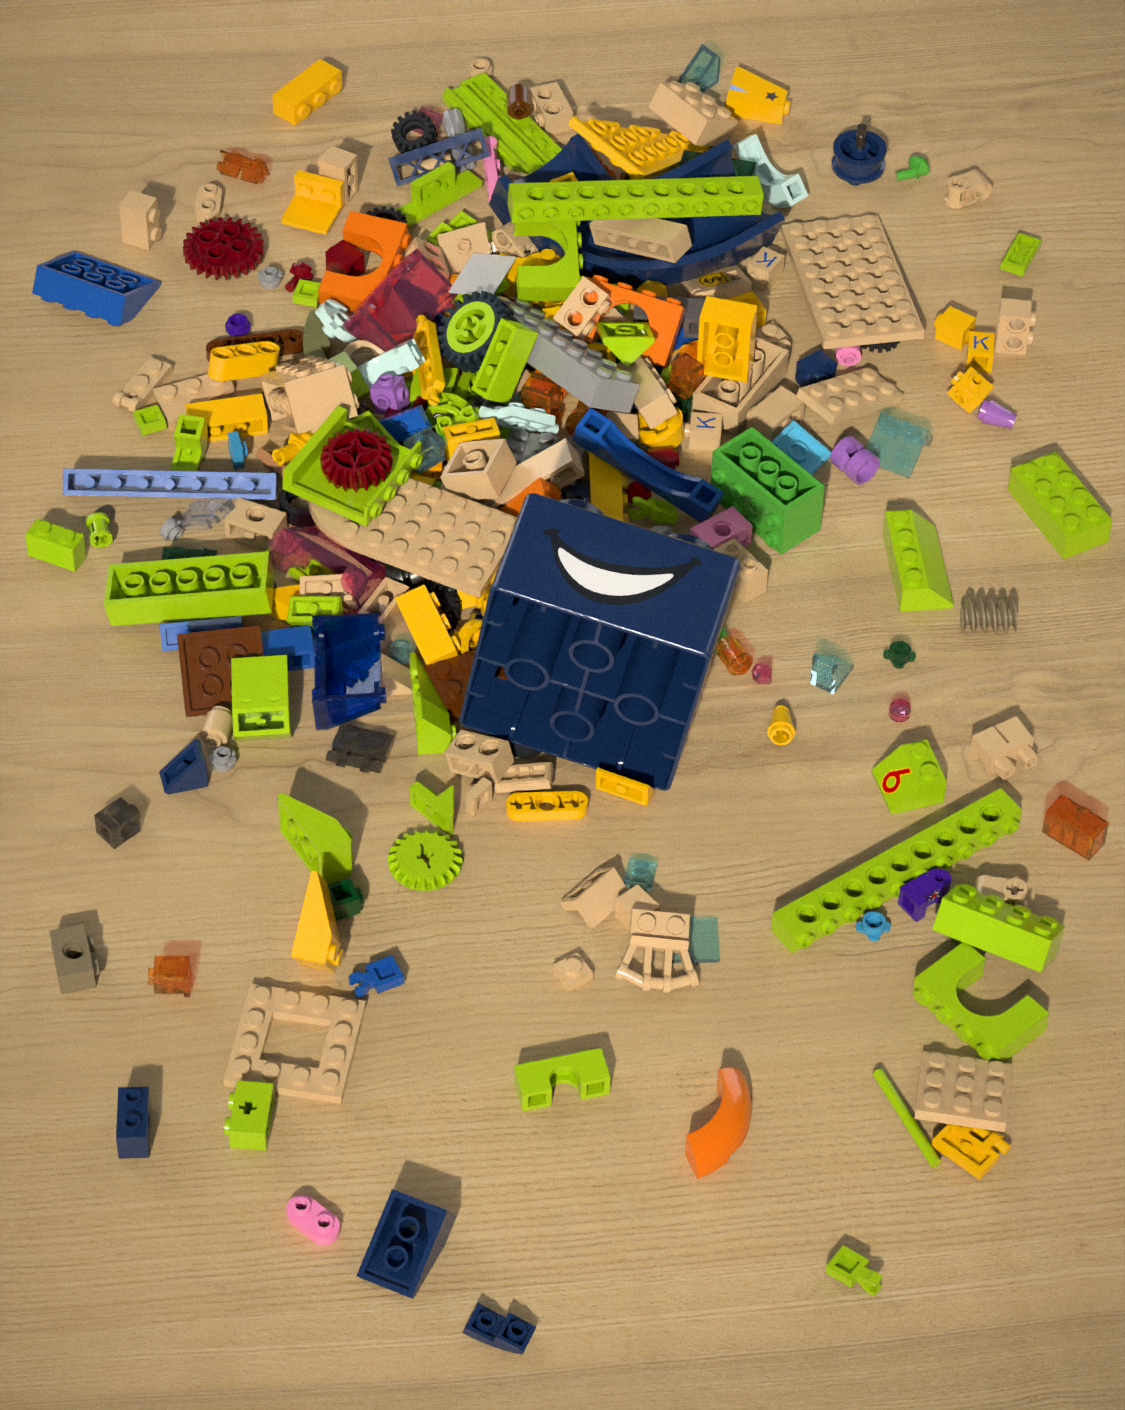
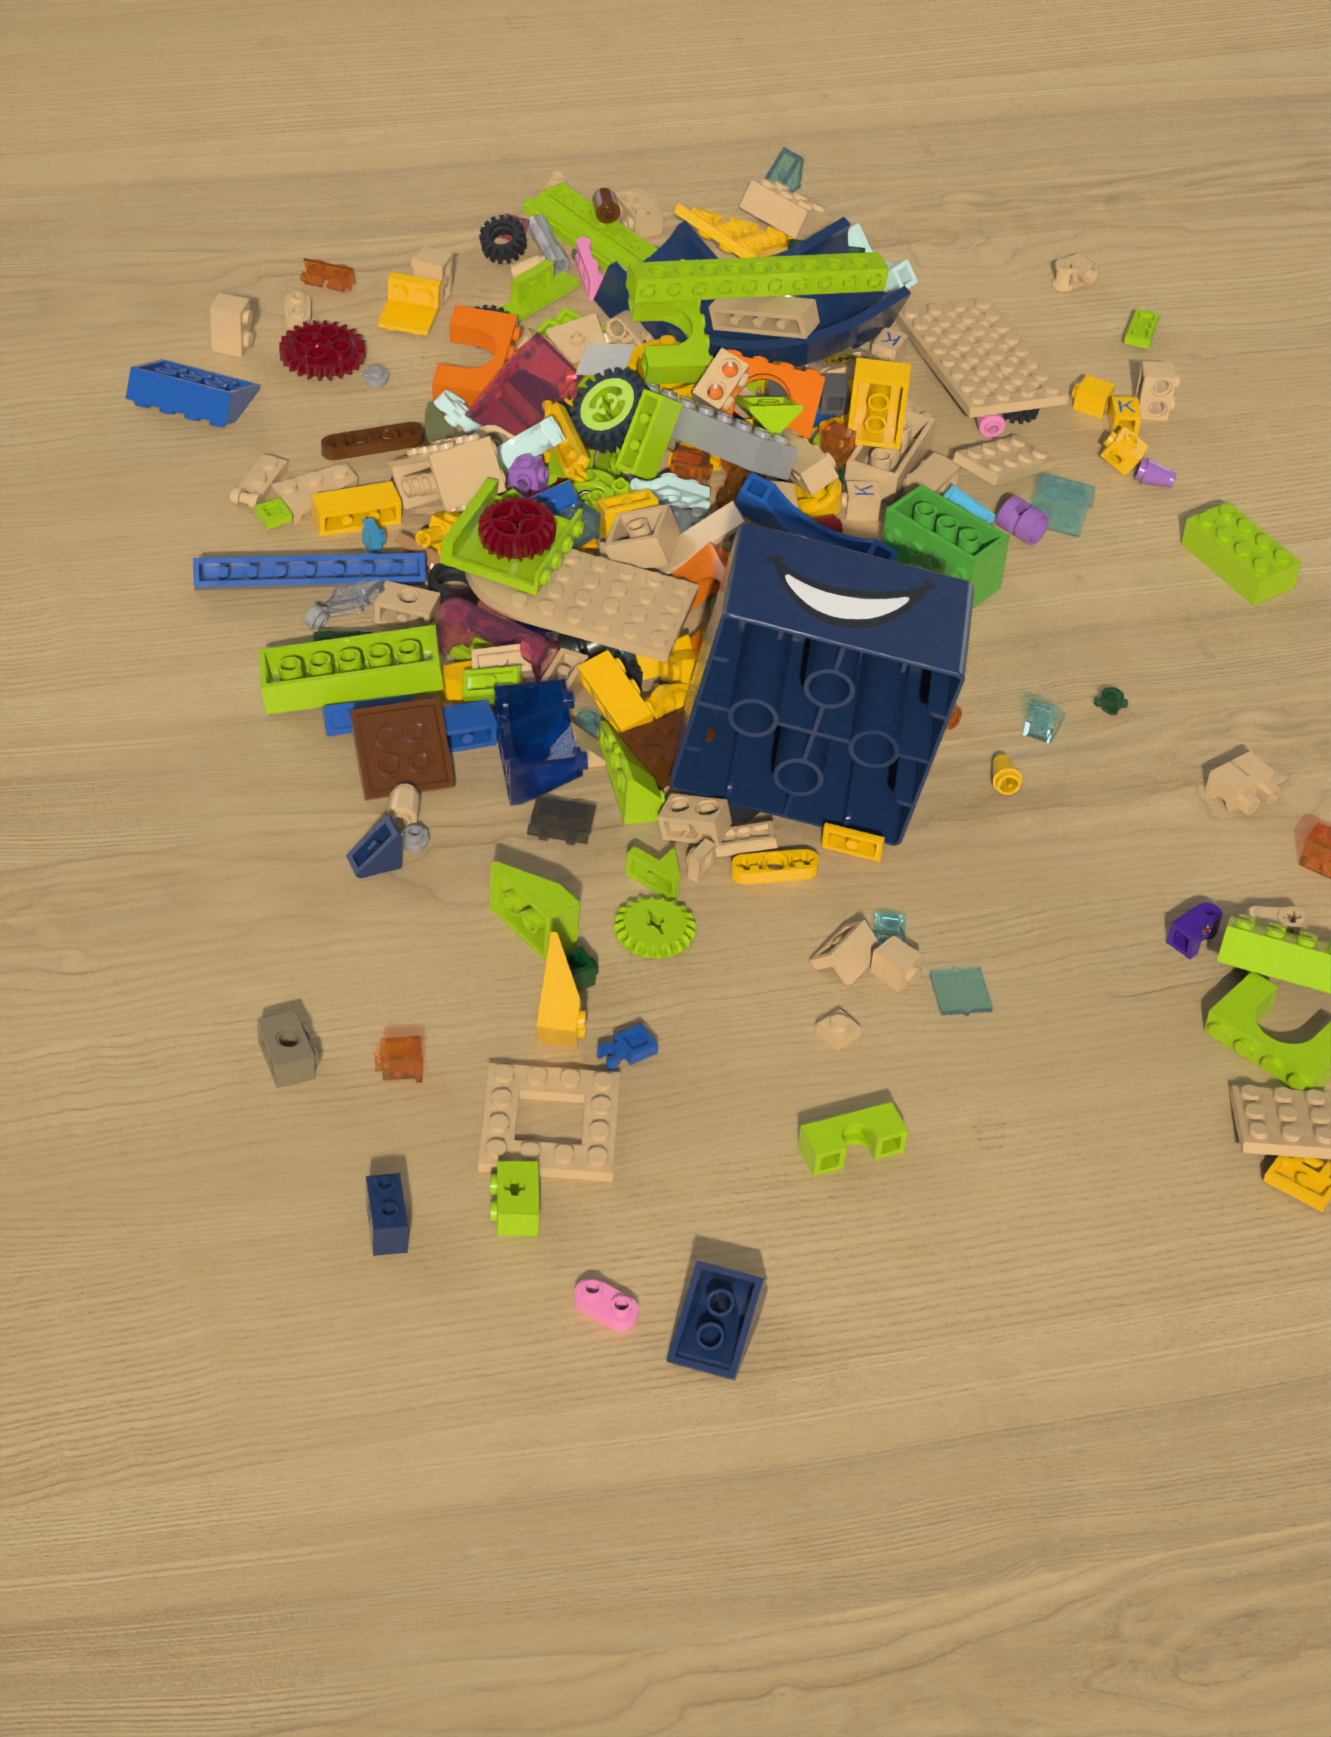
camera: 10 degrees left, 5 degrees down
(55, 545) = (194, 636): lime brick -> none
(99, 531) = (238, 620): lime bush -> none
(117, 822) = (311, 907): clear smoke brick -> none
(190, 443) = (323, 528): lime brick -> none
(237, 325) = (350, 421): dark purple plate -> none
(243, 360) = (364, 451): yellow beam -> none
(260, 698) = (449, 774): lime slope -> none
(299, 271) = (408, 371): dark red plate -> none
(306, 293) = (418, 389): lime plate -> none
(307, 92) = (382, 205): yellow brick -> none
(345, 259) = (453, 353): dark red brick -> none
(439, 148) = (533, 248): dark blue fence -> none
(501, 1332) = (844, 1409): dark blue slope -> none
(662, 933) = (933, 983): tan plate -> none
(719, 1138) = (1035, 1190): orange brick -> none
(756, 98) = (846, 197): yellow slope -> none
(762, 673) = (973, 726): clear pink hinge -> none
(814, 369) = (960, 437): dark blue brick -> none
(851, 1268) = (1211, 1311): lime plate -> none
(859, 156) = (960, 244): dark blue wheel -> none
(871, 920) = (1148, 964): dark azure plate -> none
(883, 875) = (1152, 911): lime brick -> none
(899, 710) = (1123, 754): clear pink hinge -> none
(906, 1118) = (1230, 1154): lime bar -> none
(910, 778) = (1153, 817): lime slope -> none
(915, 562) = (1105, 613): lime slope -> none
(918, 168) = (1020, 255): bright green plate -> none
(988, 615) = (1196, 656): dark tan piece -> none

